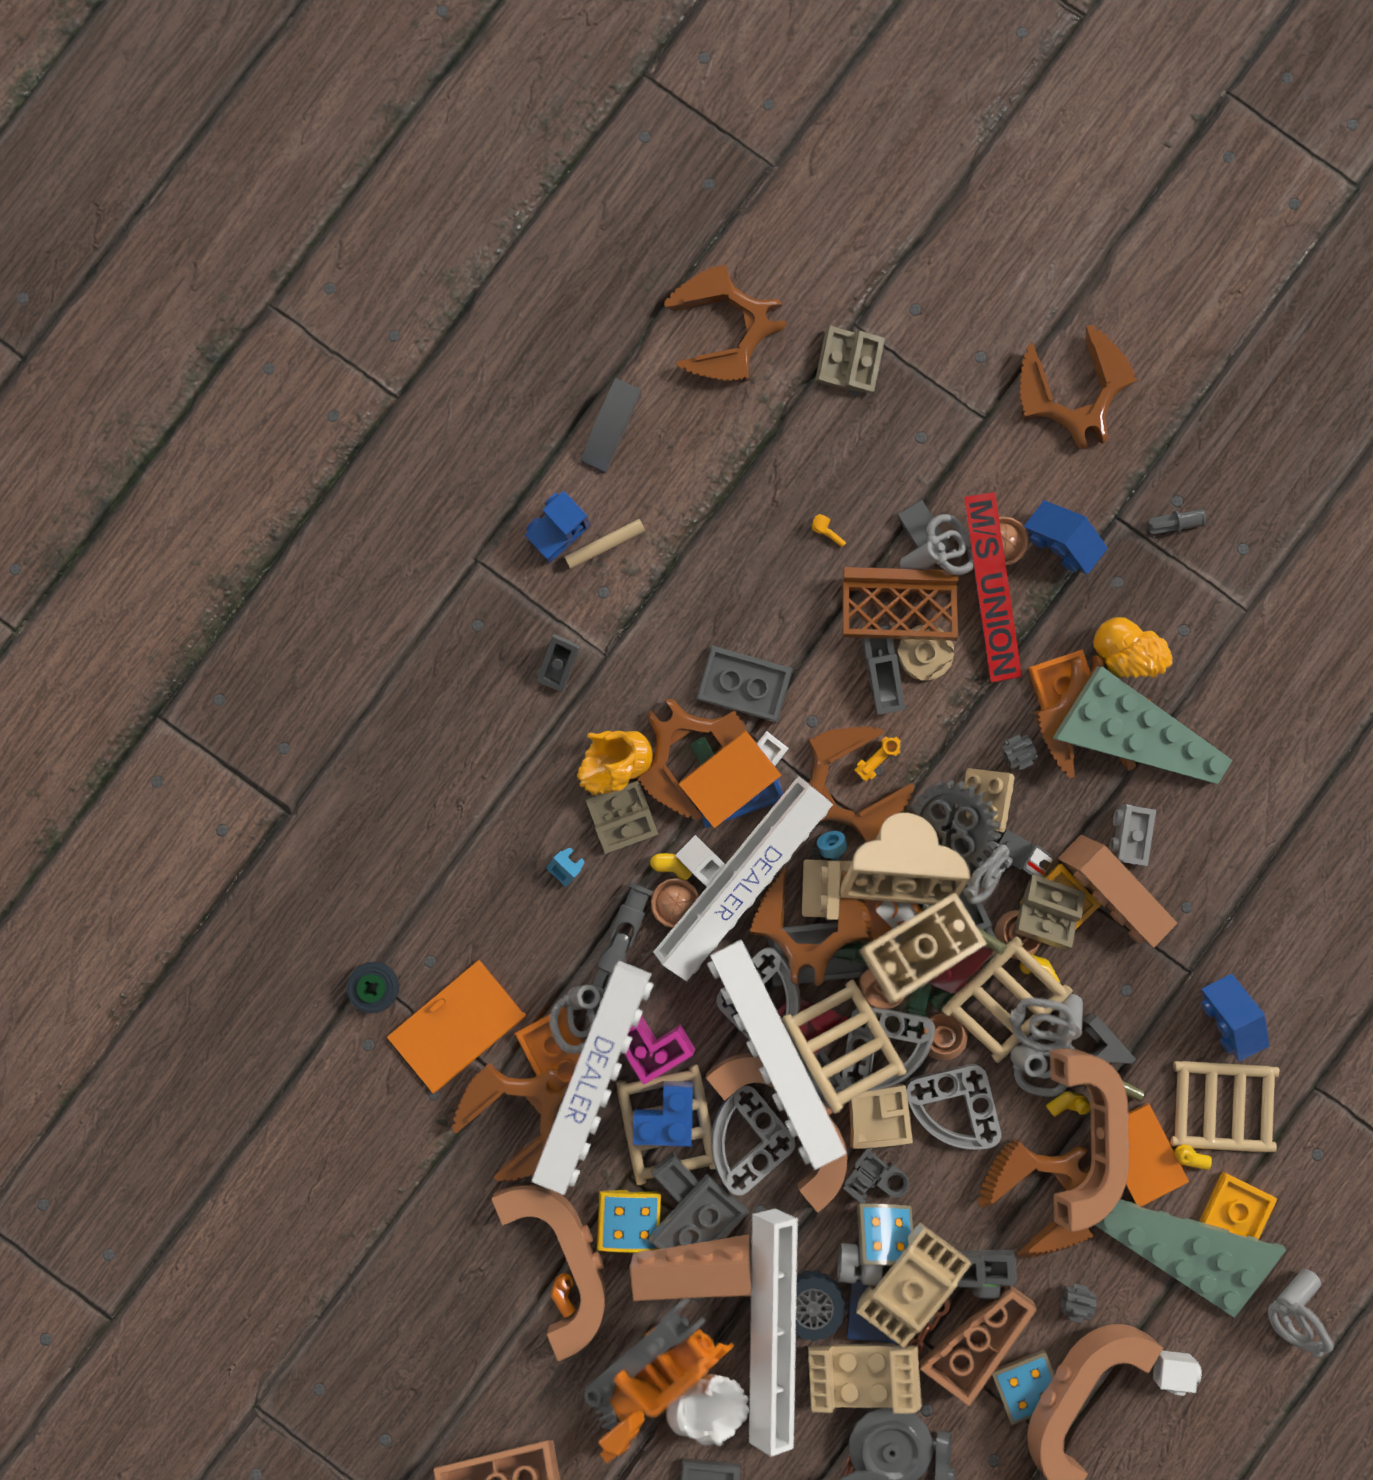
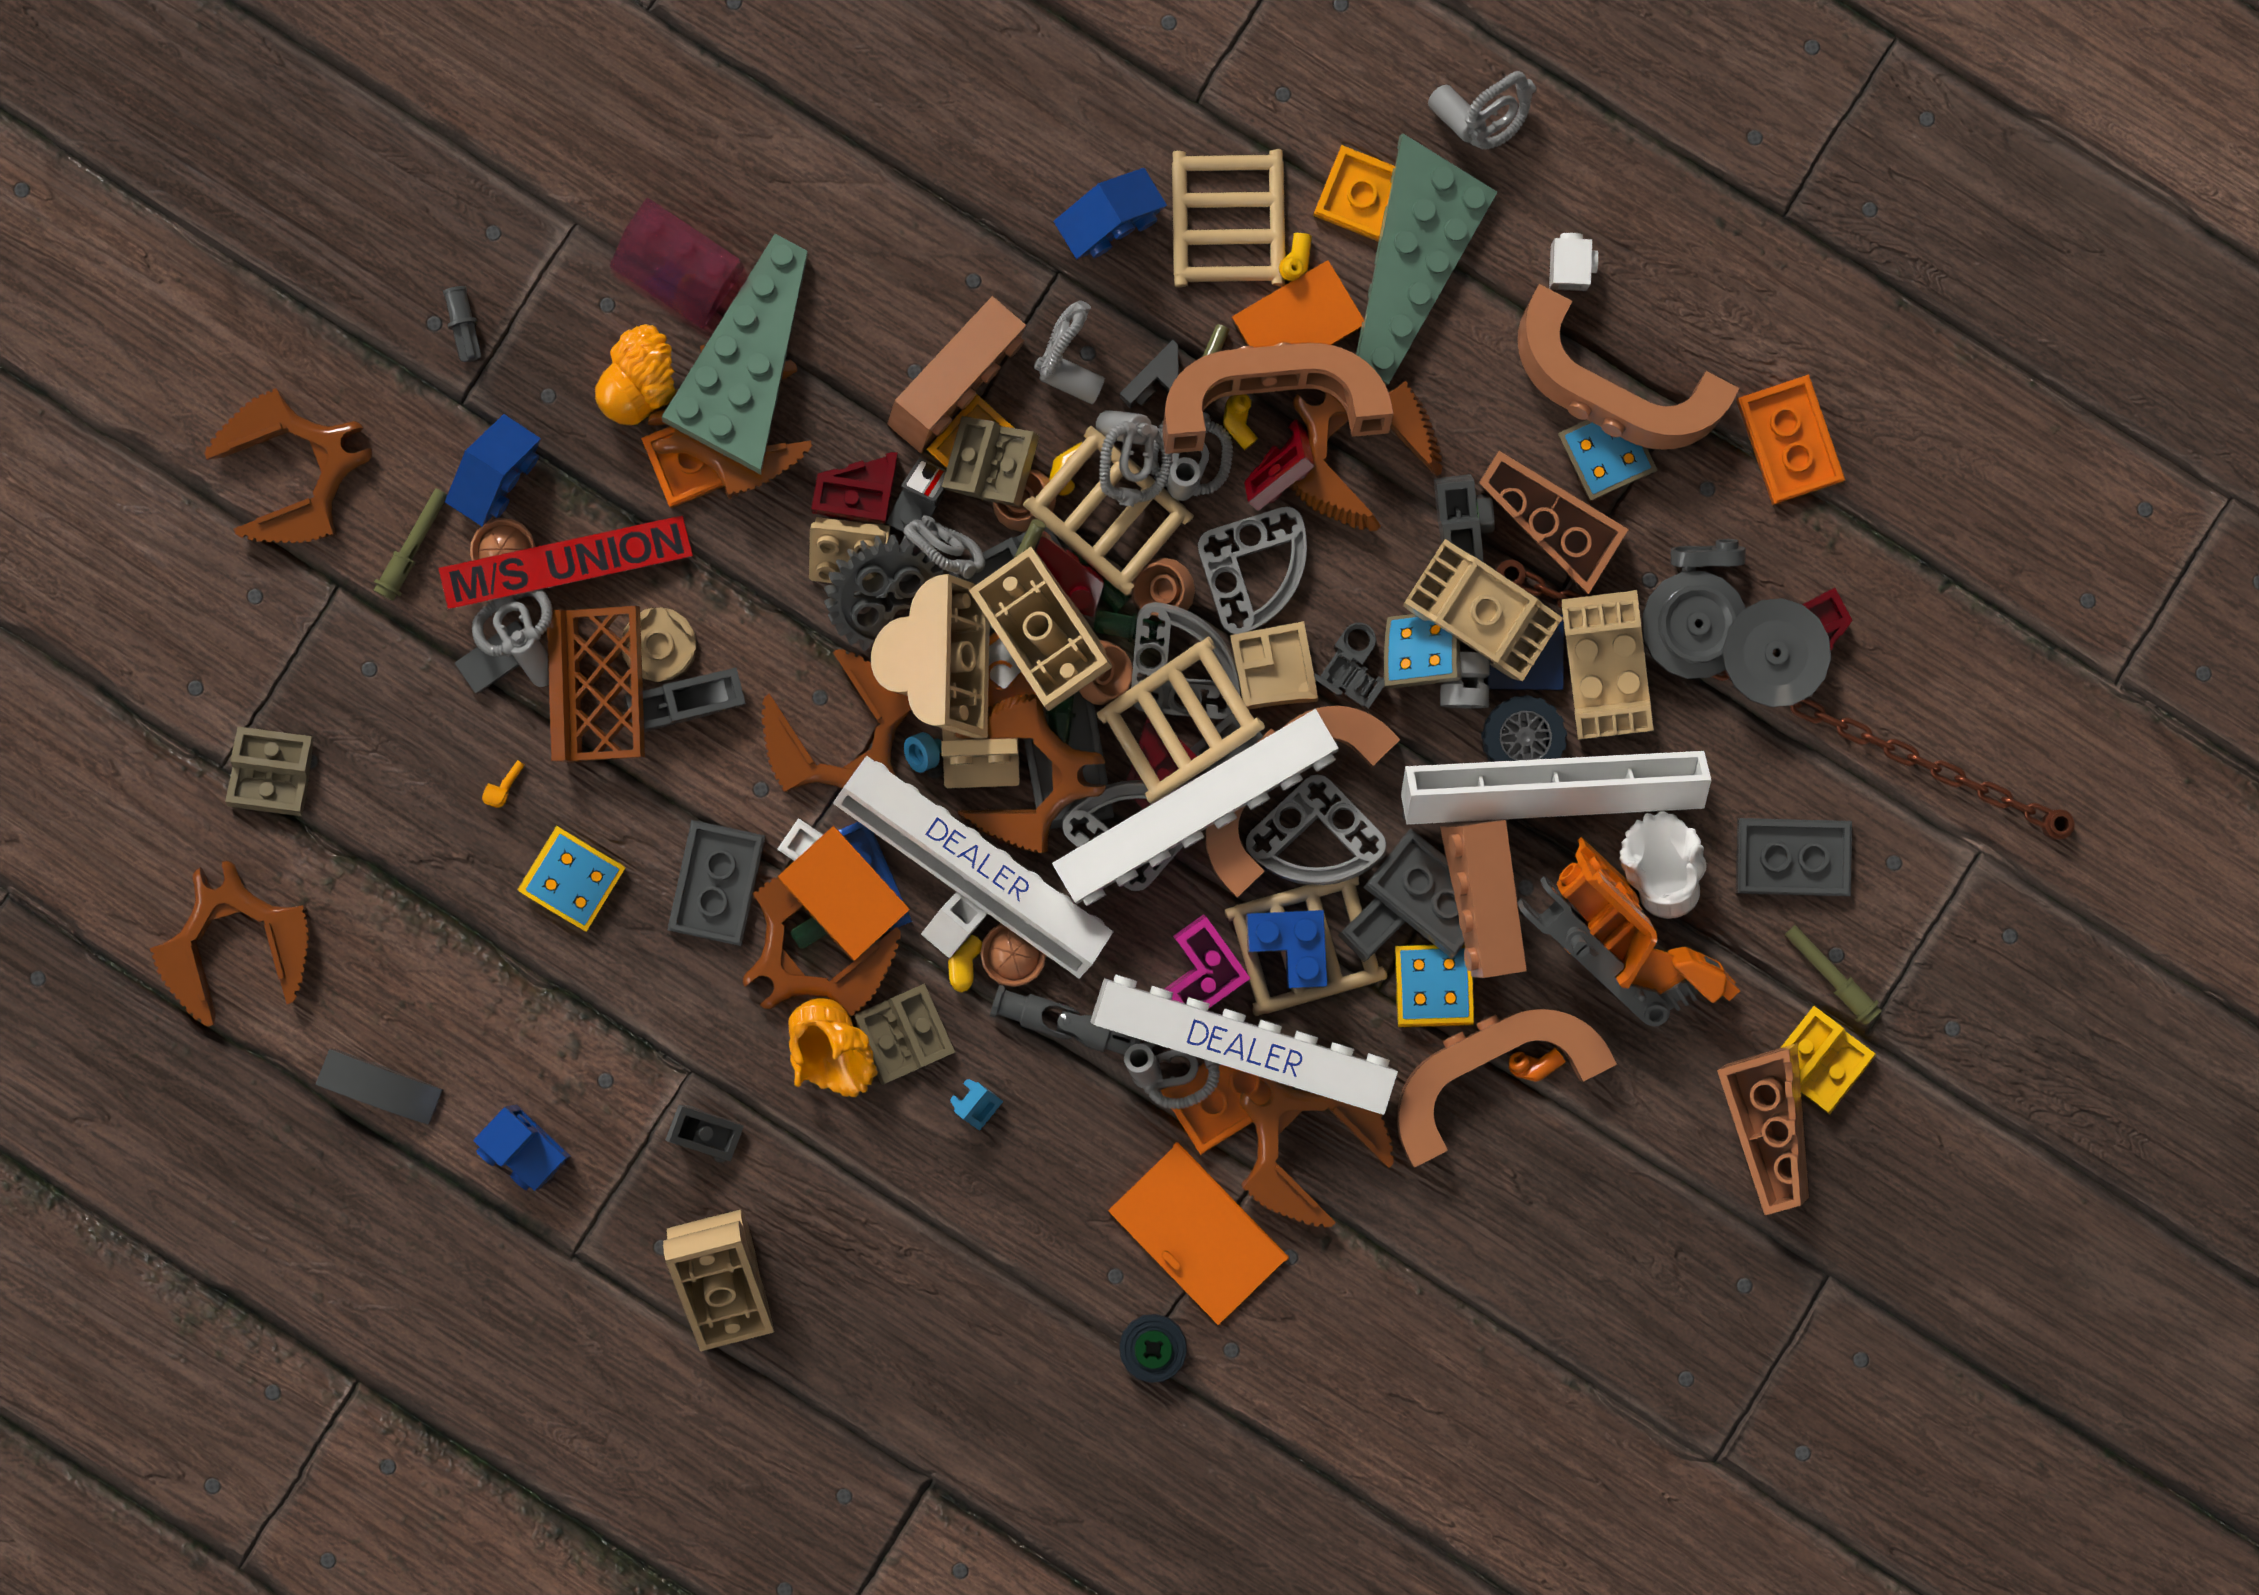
camera: 100 degrees left, 0 degrees up
(448, 666) = (718, 1279): none -> tan brick
(605, 543) = (539, 1083): tan piece -> none
(755, 576) = (571, 878): none -> dark azure slope
(889, 746) = (788, 685): light orange bar -> none
(1000, 466) = (402, 562): none -> olive pin
(1019, 752) = (783, 514): dark grey gear -> none
(1031, 1134) = (1280, 468): none -> dark red wing
(1032, 809) = (858, 491): none -> dark red wing
(1078, 1303) = (1493, 394): dark grey gear -> none
(1115, 969) = (1061, 372): none -> light grey piece
(1132, 834) = (881, 358): light grey bracket -> none
(1214, 684) = (675, 263): none -> clear pink slope

